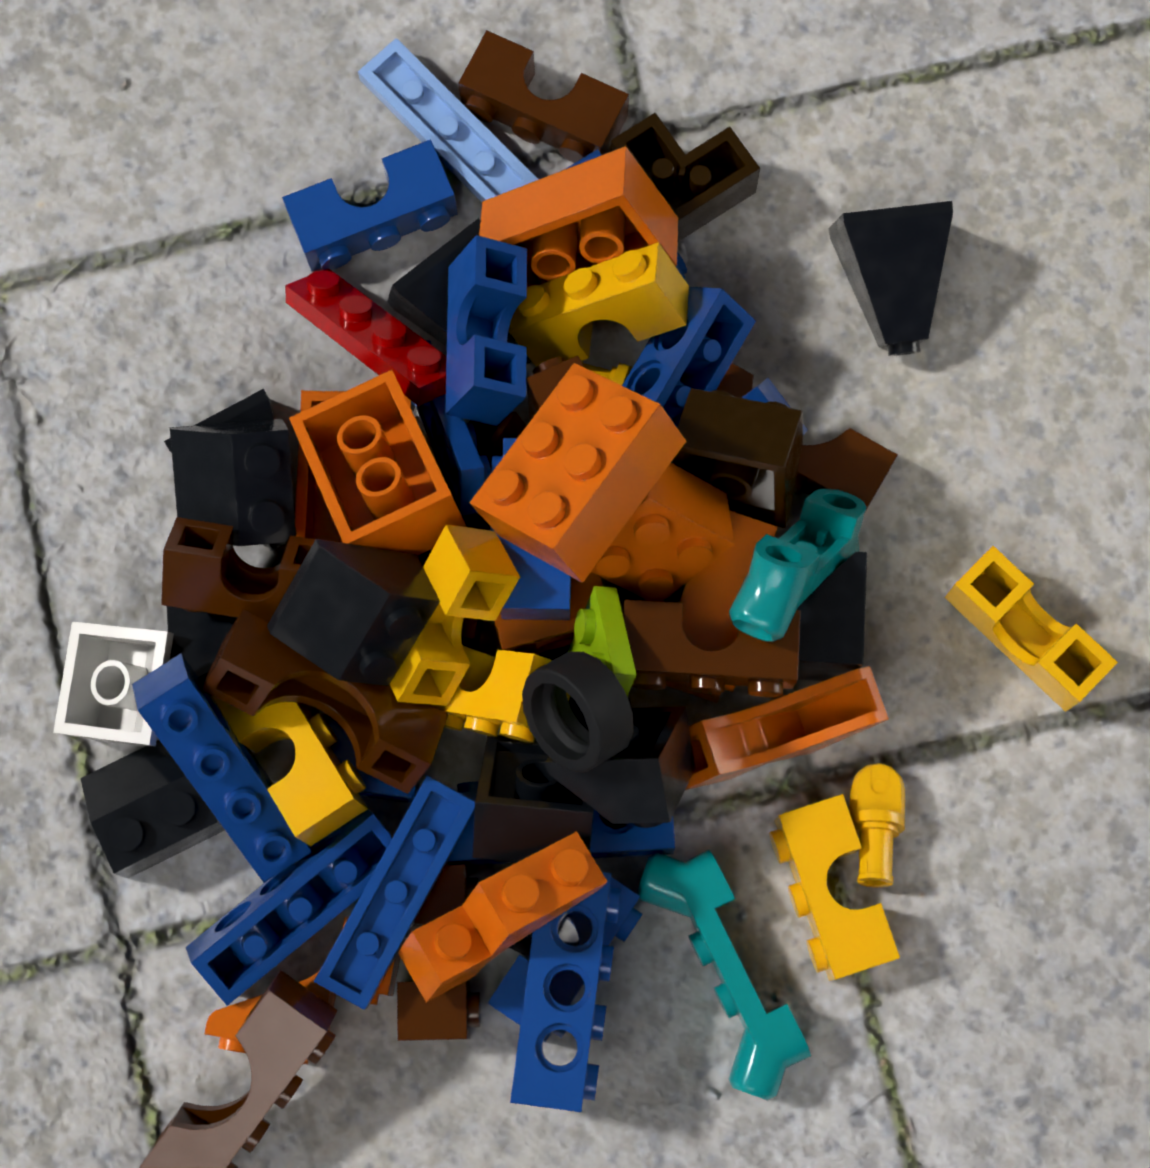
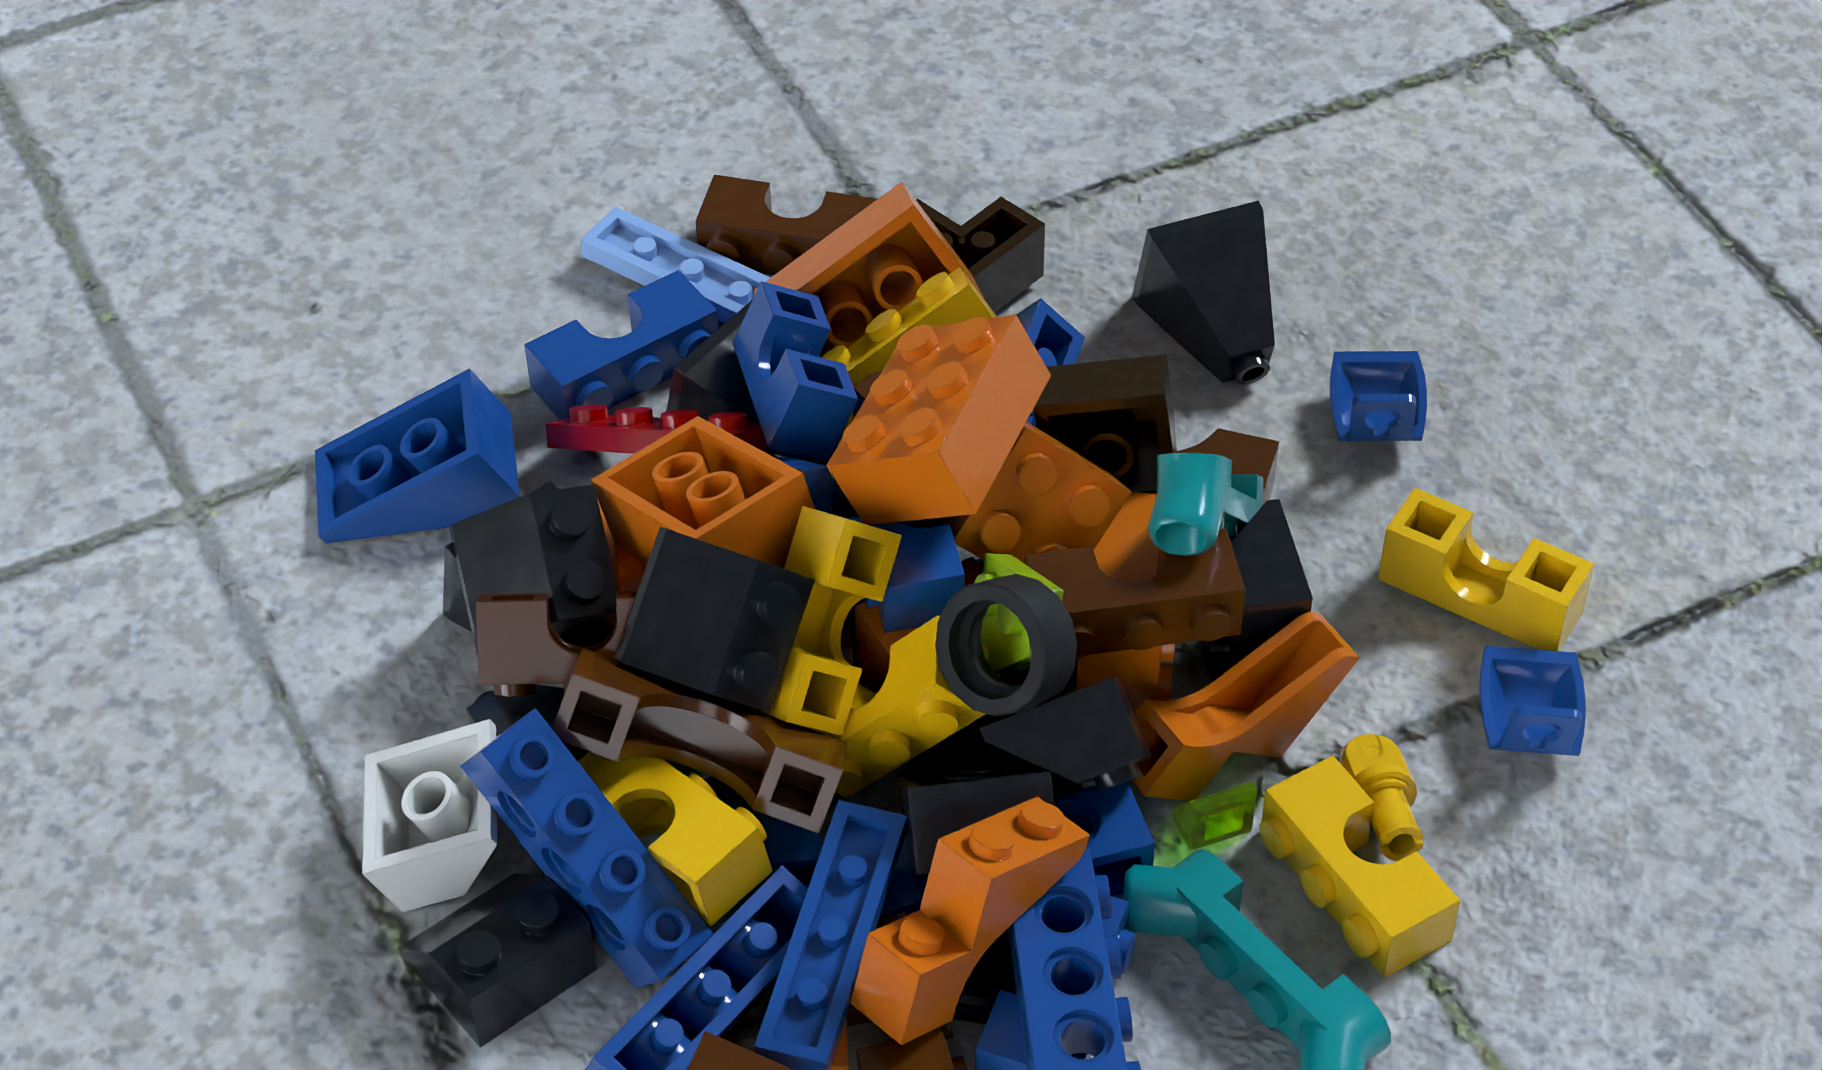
camera: 15 degrees left, 30 degrees down
(175, 300) = (418, 465): none -> blue slope
(739, 803) = (1216, 816): none -> clear neon green slope
(1003, 409) = (1378, 395): none -> blue piece
(1027, 763) = (1532, 700): none -> blue piece

